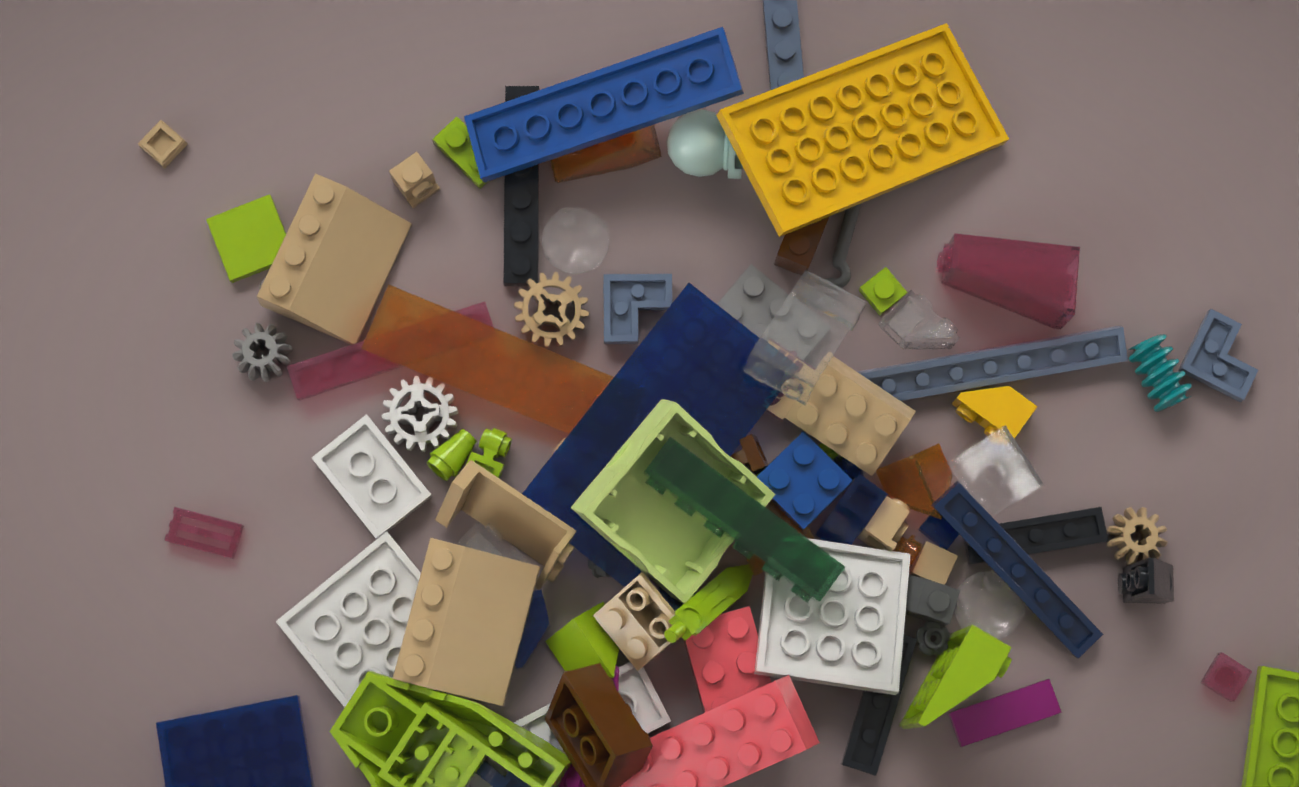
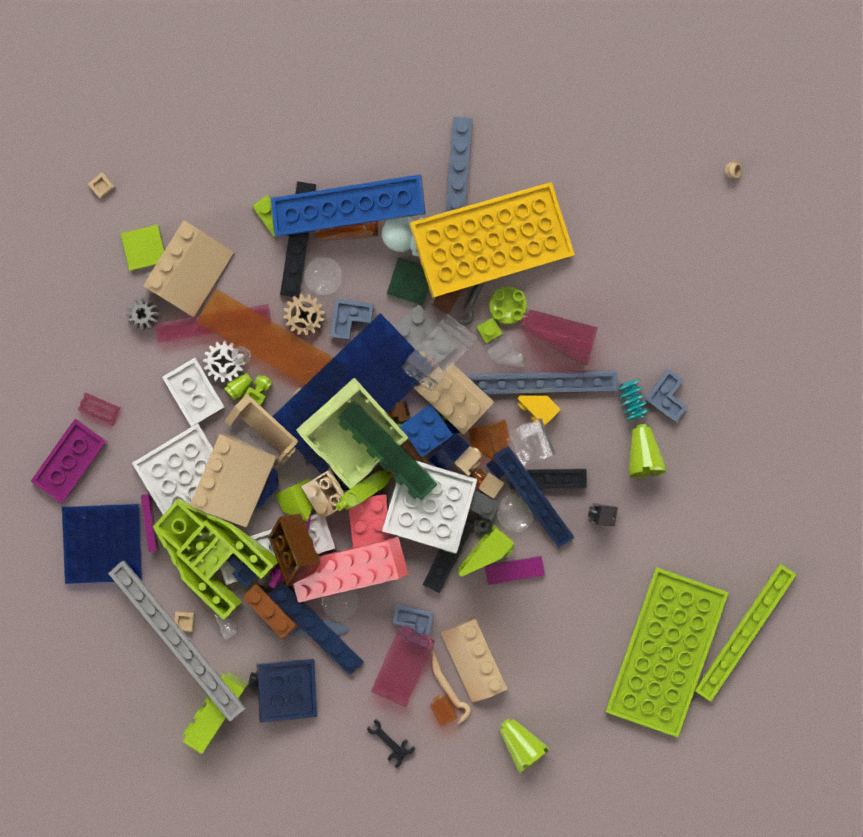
camera: 15 degrees right, 10 degrees up
(158, 636) = (68, 461): none -> magenta plate
(321, 726) = (149, 521): none -> magenta tile
(414, 179) = (238, 229): tan brick -> none
(446, 402) = (241, 361): none -> clear cone
(729, 228) = (408, 282): none -> clear green plate
(908, 242) = (508, 305): none -> lime dish
(1139, 549) = (607, 492): tan gear -> none
(1201, 464) = (645, 454): none -> lime cone
(1226, 677) = (636, 569): clear pink plate -> none

